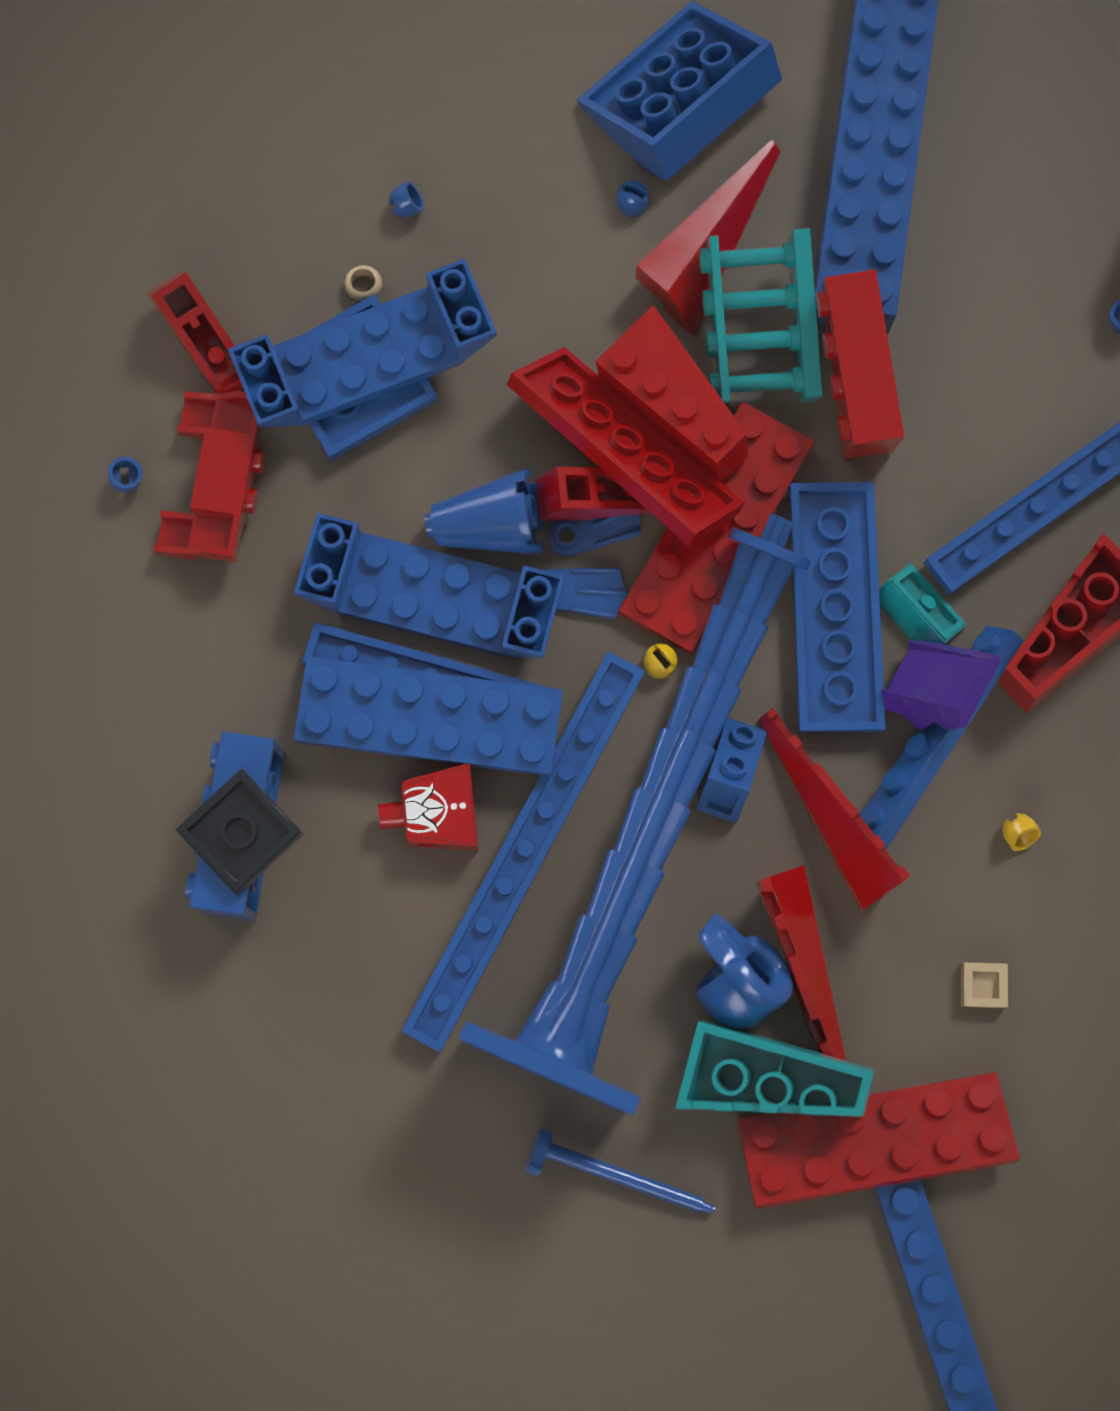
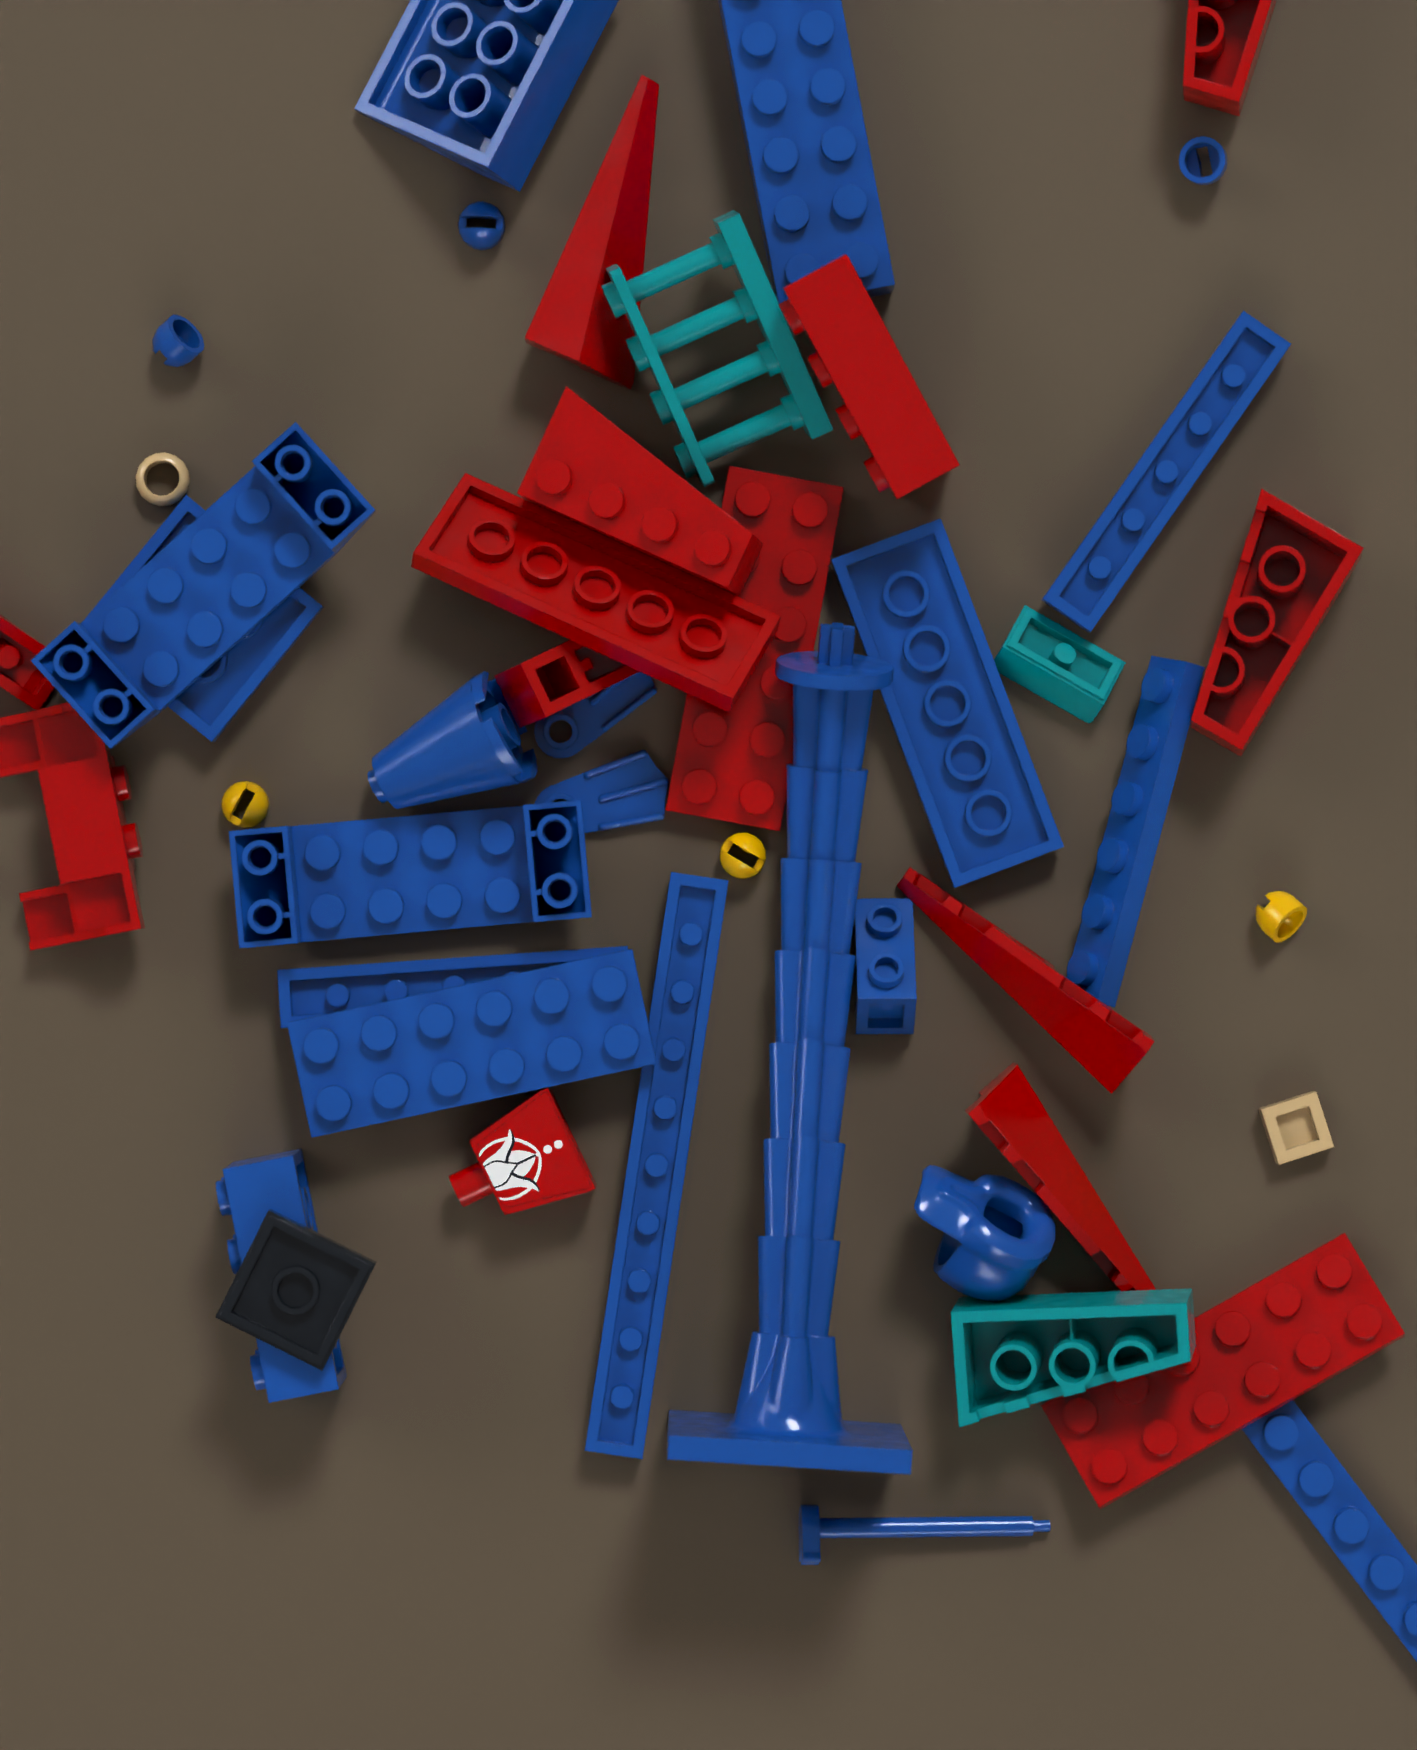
camera: 20 degrees left, 10 degrees up
(343, 511) = (256, 809): none -> yellow hinge
(939, 684) = (1113, 767): dark purple slope -> none

